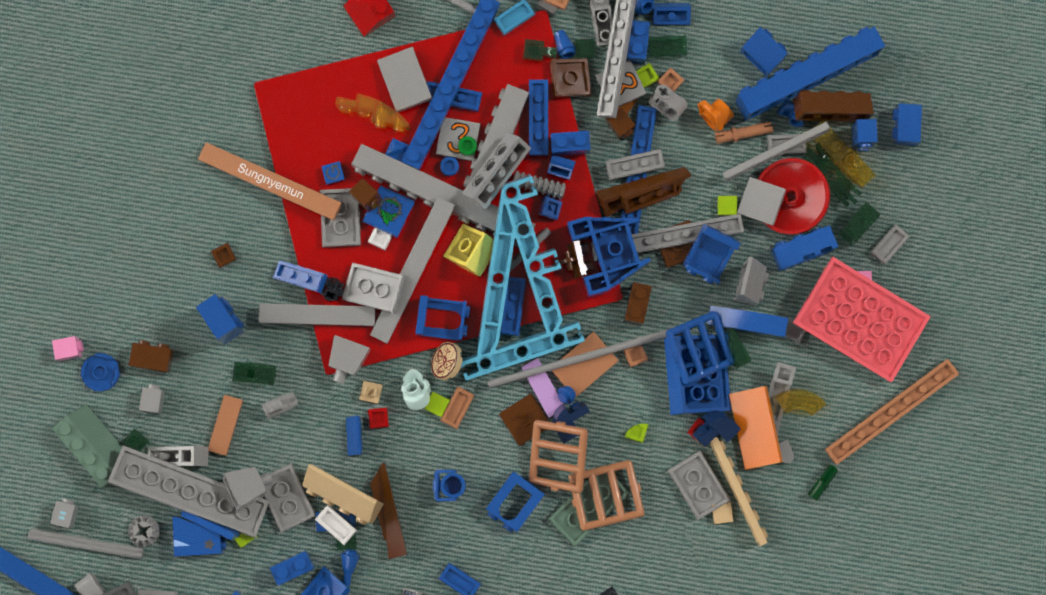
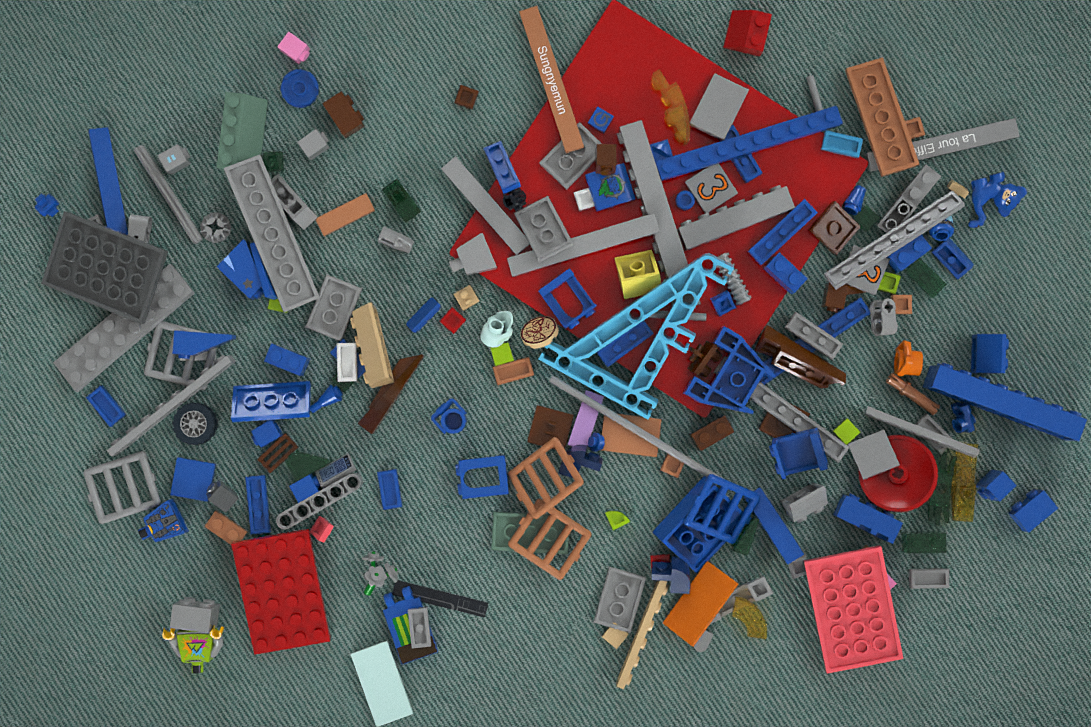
camera: 50 degrees right, 5 degrees up
(220, 318) = (416, 138): blue brick -> none
(246, 486) = (313, 271): light grey torso -> none
(467, 146) = (712, 199): green tile -> none
(496, 170) = (714, 238): light grey brick -> none
(535, 50) = (831, 183): plate -> none
(561, 167) = (761, 283): blue piece -> none
(822, 483) = (704, 689): dark green axle -> none
(832, 106) = (995, 442): reddish brown brick -> none
(891, 411) = (805, 692): nougat plate -> none

